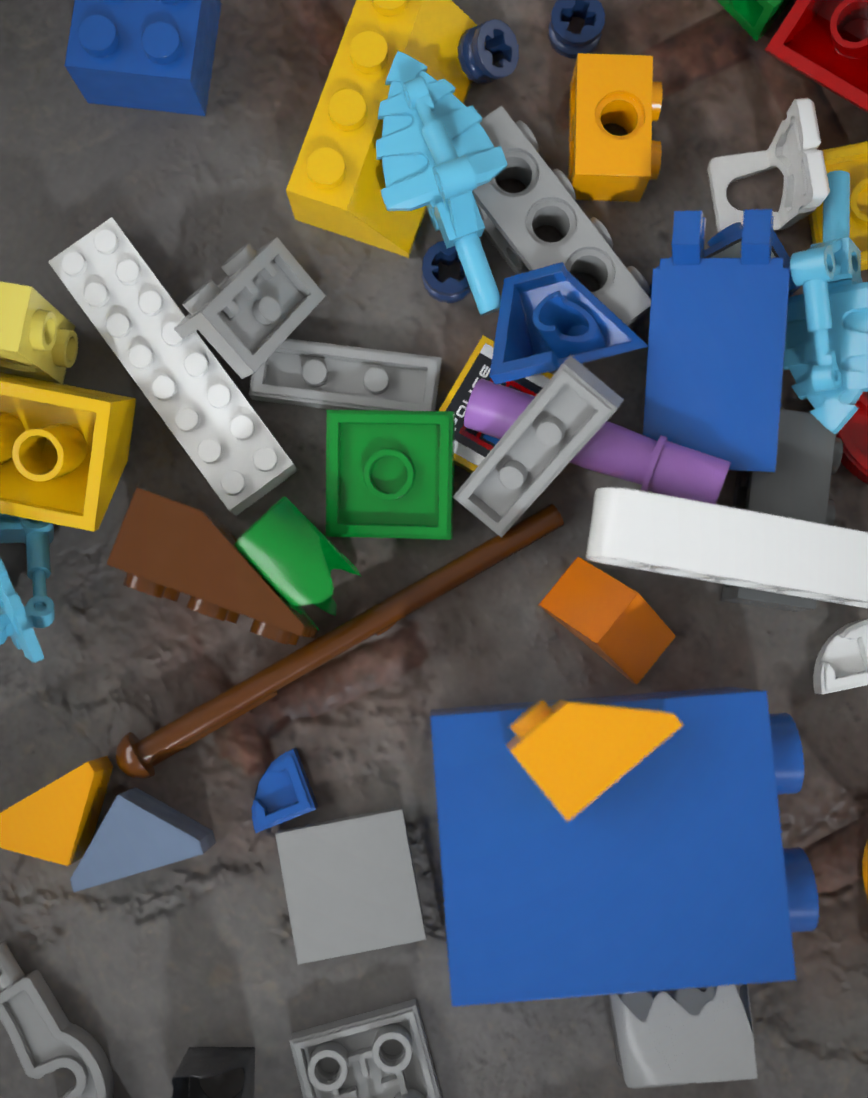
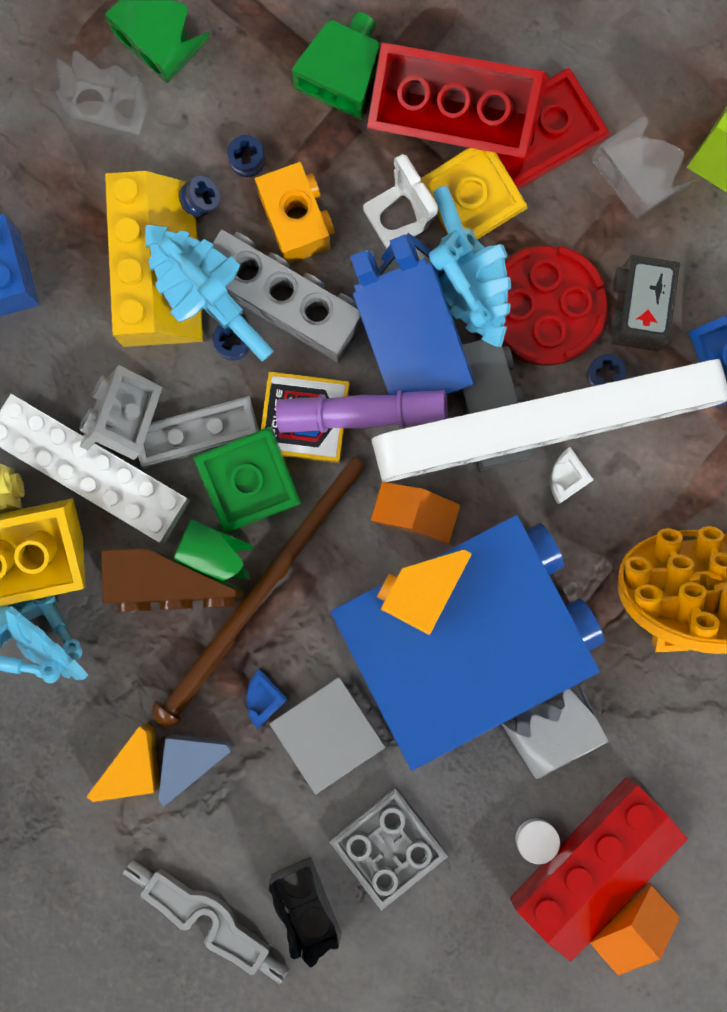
camera: 25 degrees left, 0 degrees up
(538, 446) = (327, 428): light grey tile -> none
(547, 319) = (307, 351): blue slope -> none

